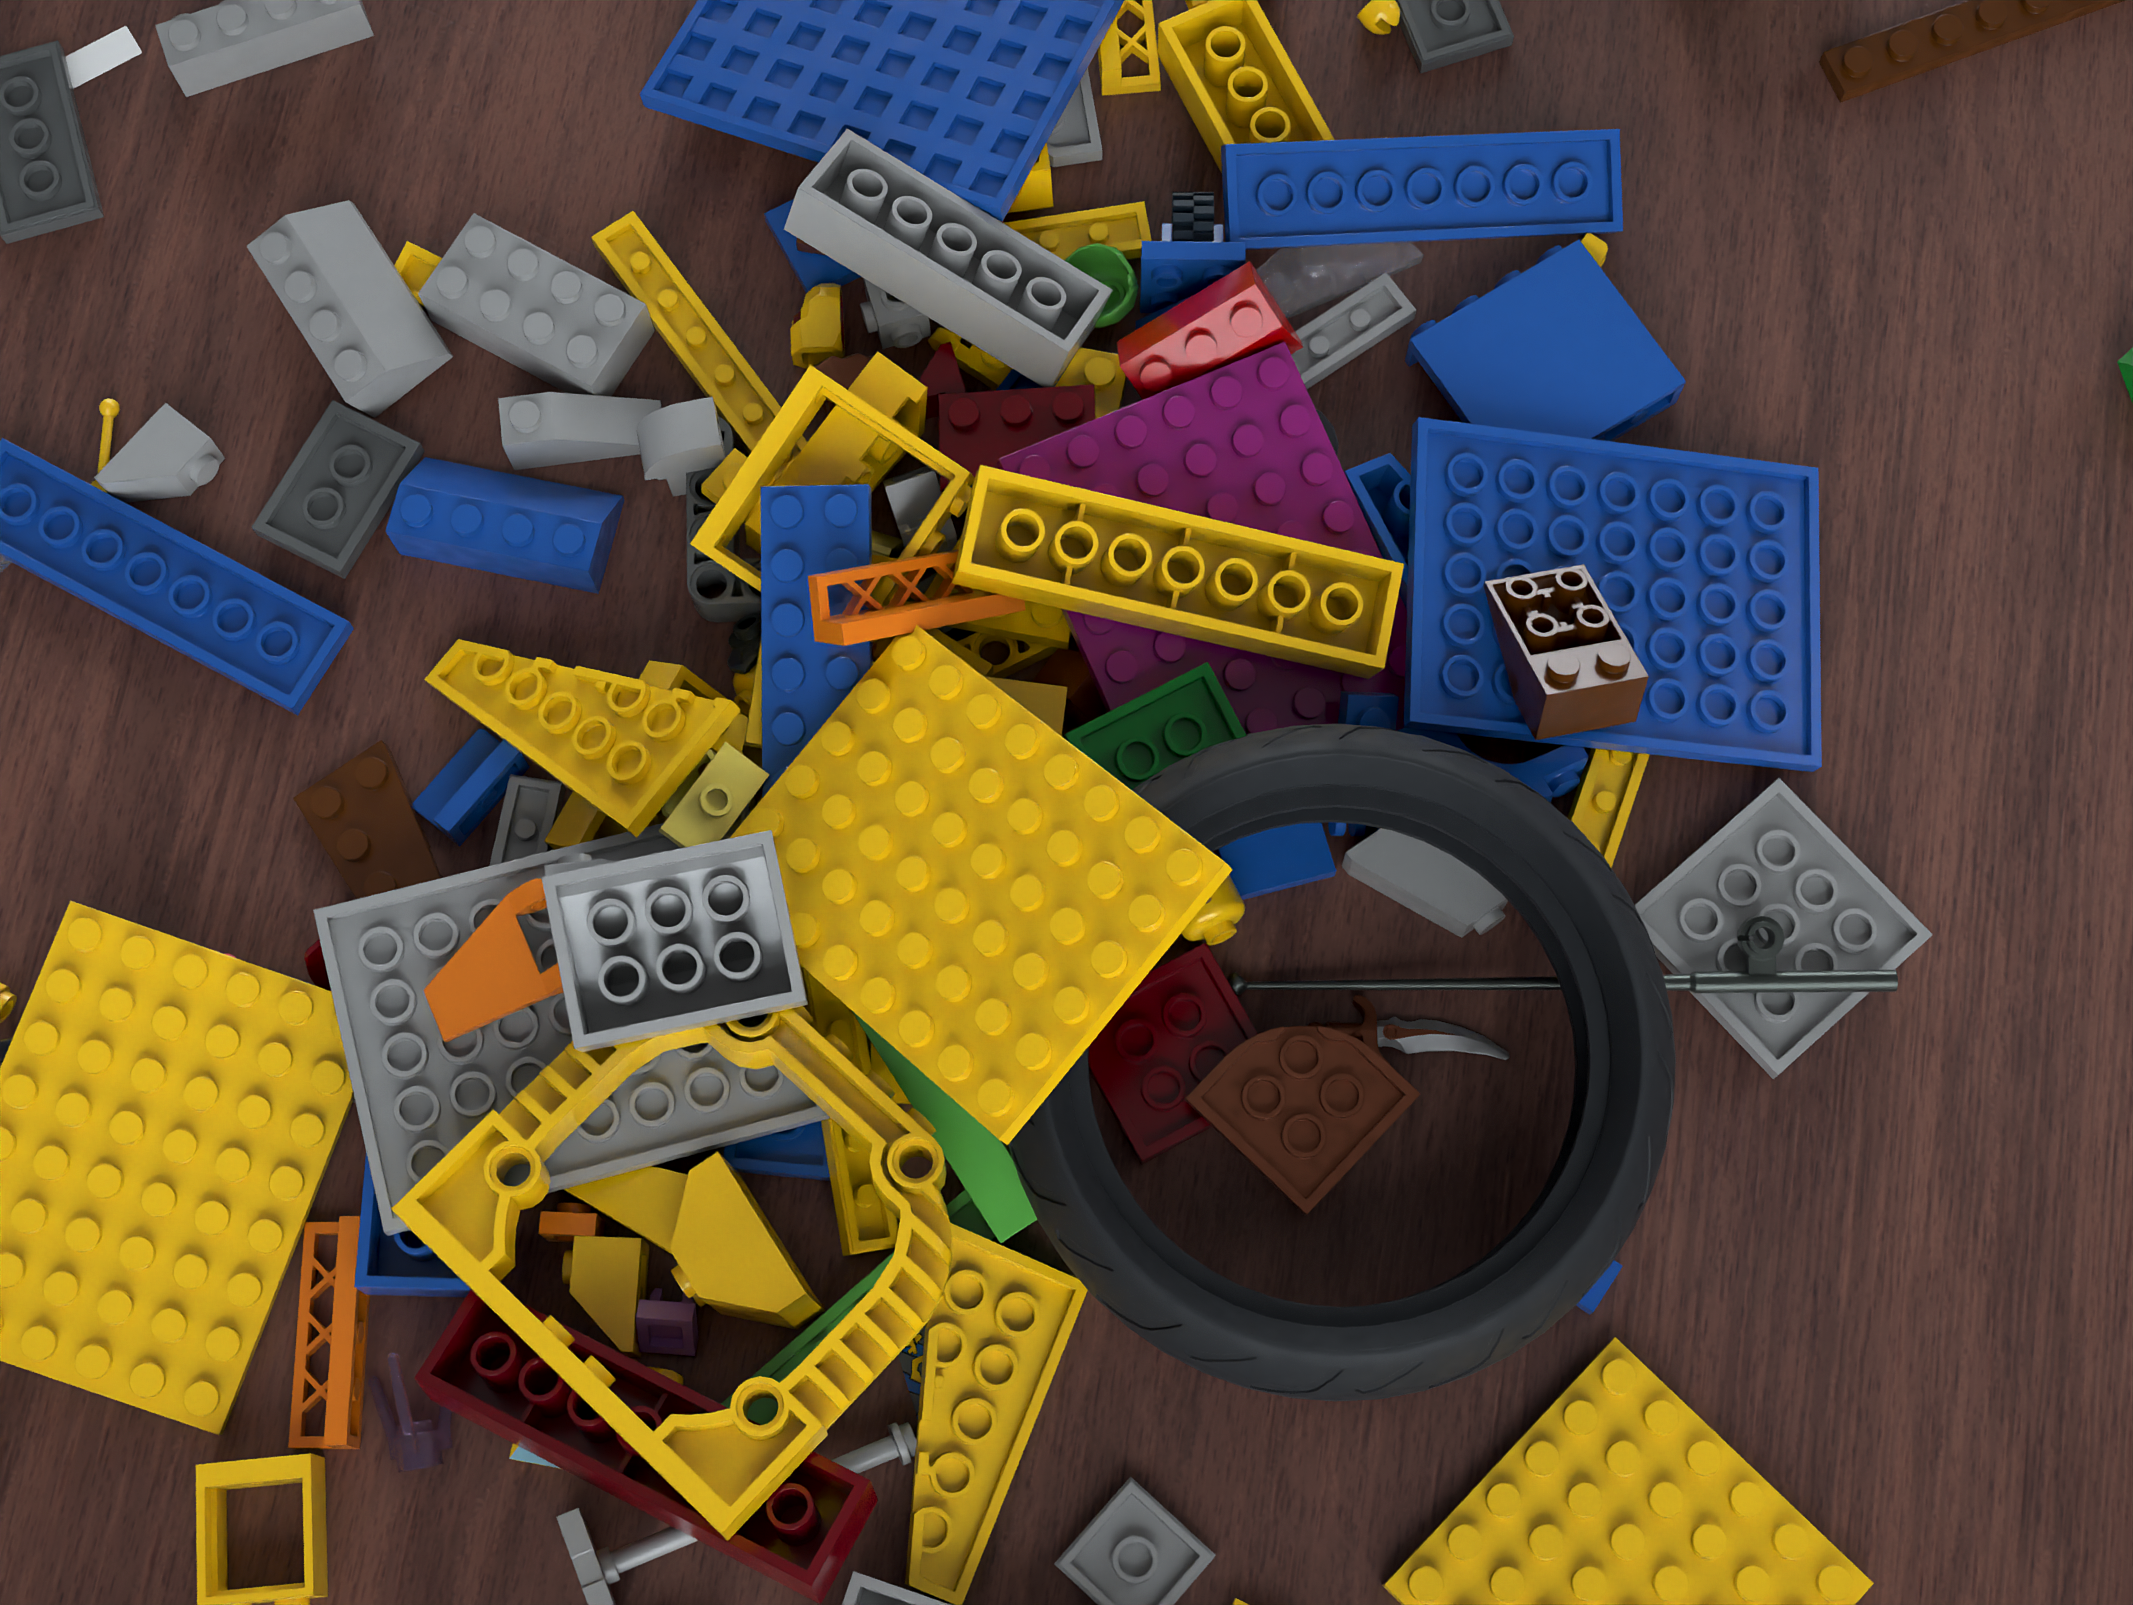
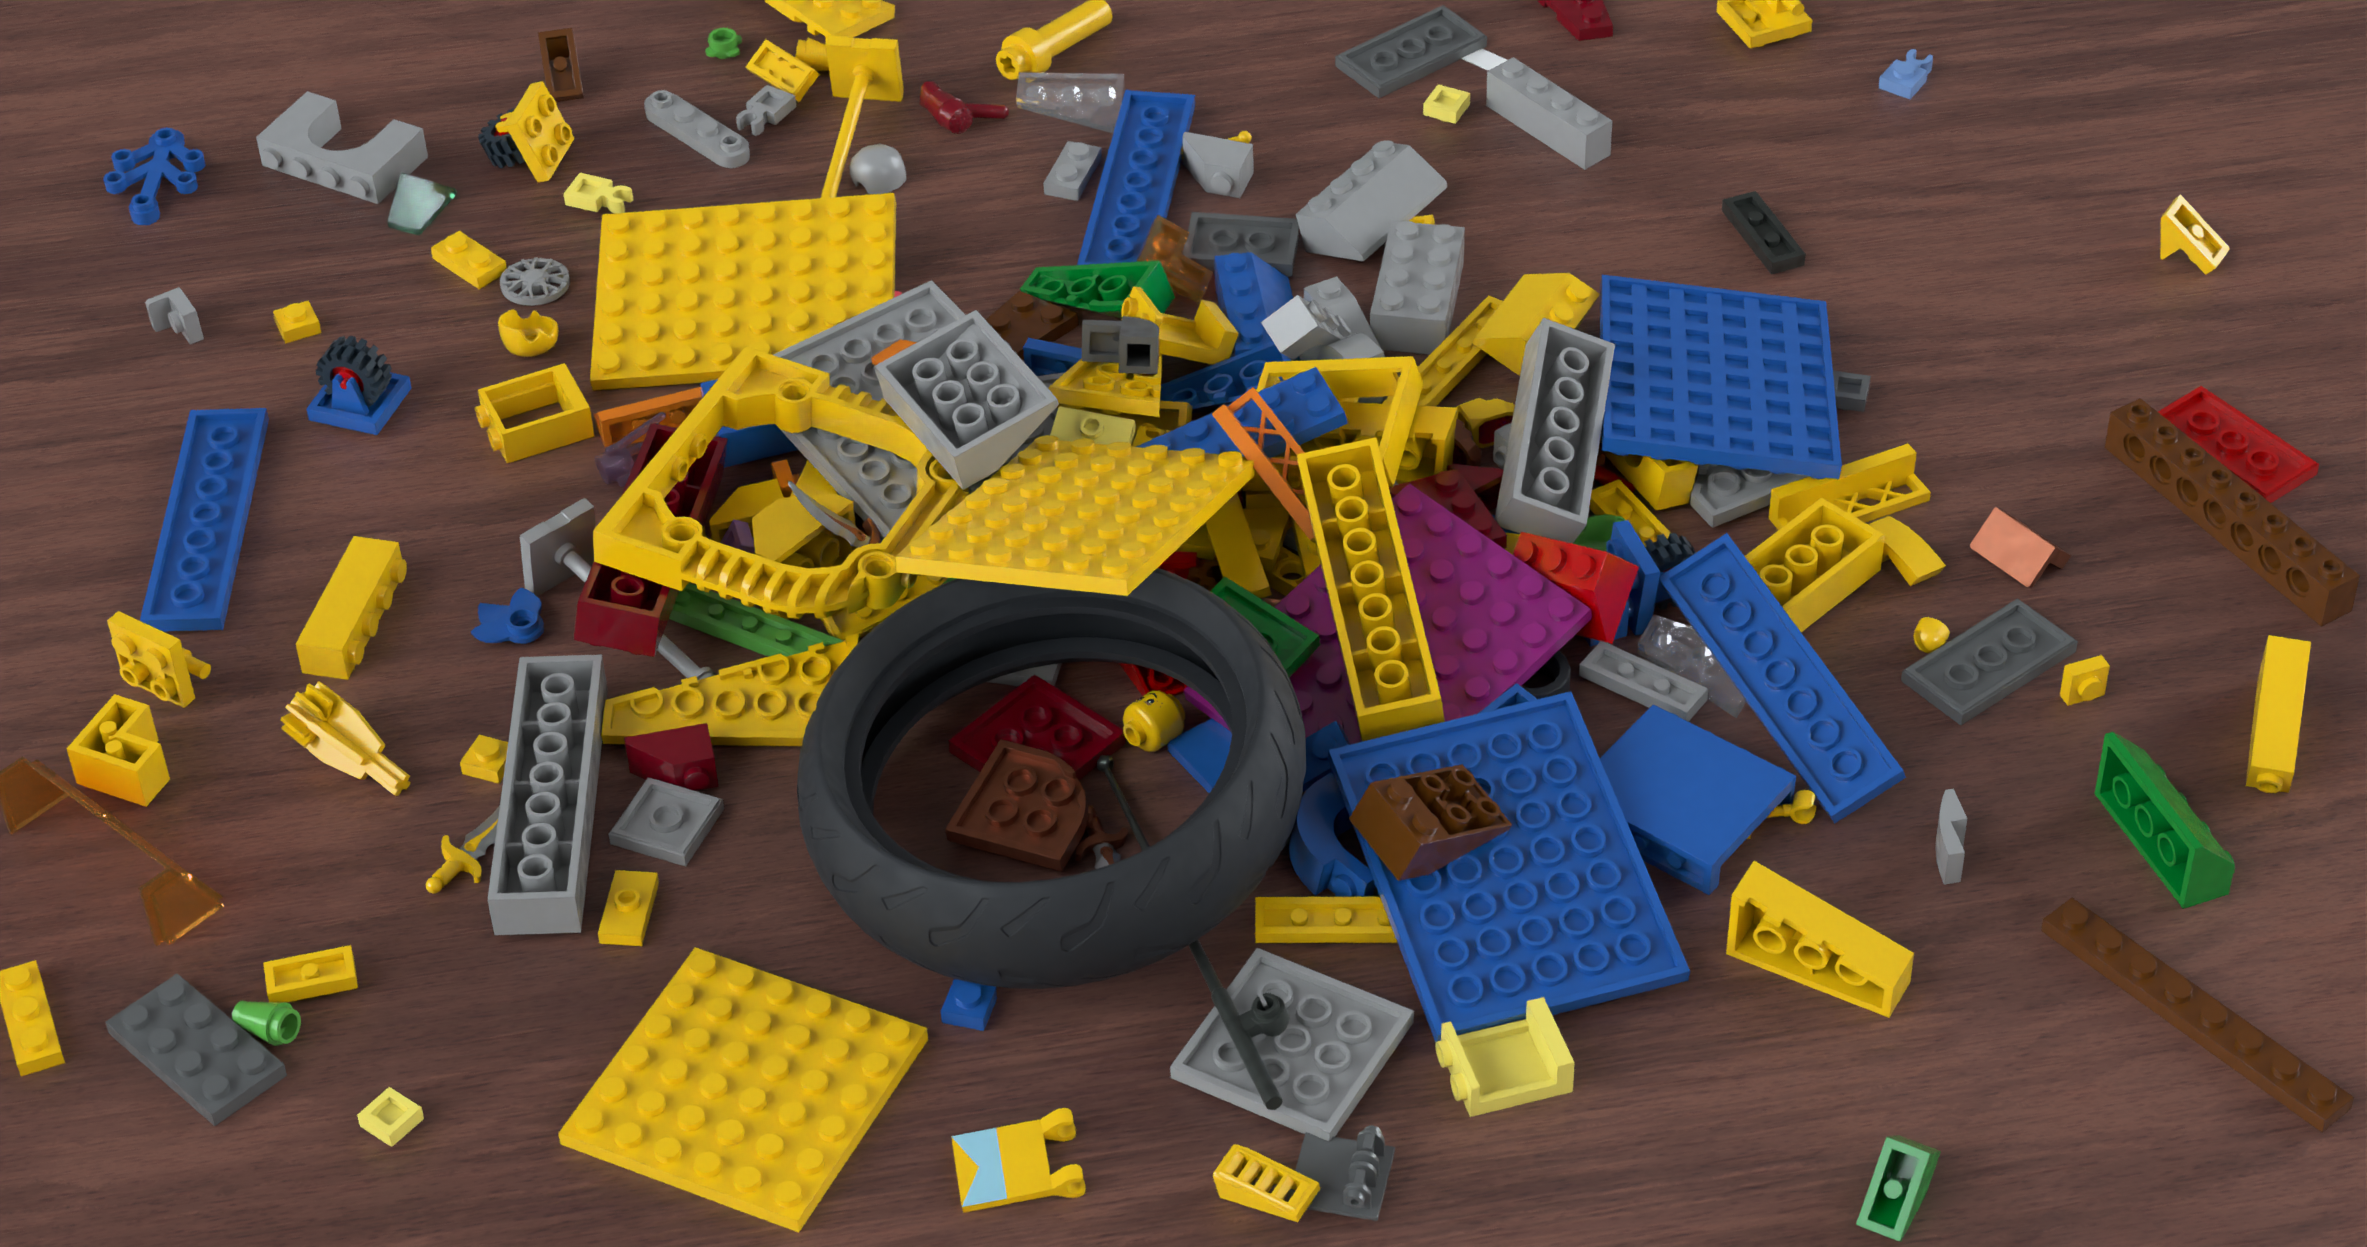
camera: 70 degrees right, 30 degrees down
(68, 647) = (1072, 170): none -> light grey plate
(77, 1497) = (527, 335): none -> yellow hair
(175, 140) = (1446, 104): none -> light yellow plate
(343, 597) = (1166, 243): none -> clear orange plate
(366, 693) = (1100, 286): none -> green wedge
(521, 623) = (1204, 339): none -> yellow panel
(563, 691) = (1126, 342): none -> dark grey brick
(624, 472) = (1304, 328): none -> light grey arch
(634, 586) = (1222, 381): none -> blue wedge
(679, 201) = (1534, 297): none -> yellow slope
(762, 1177) = (836, 523): none -> flat silver piece
(1045, 1514) = (675, 757): none -> dark red slope
(1684, 125) = (1950, 838): none -> light grey slope
(1824, 326) = (1815, 943): none -> yellow wedge
(1849, 1309) = (1013, 1165): none -> yellow flag
(1874, 706) = (1507, 1062): none -> light yellow panel
(1951, 1059) = (1243, 1165): none -> yellow slope
(1981, 944) = (1348, 1172): none -> dark grey hinge

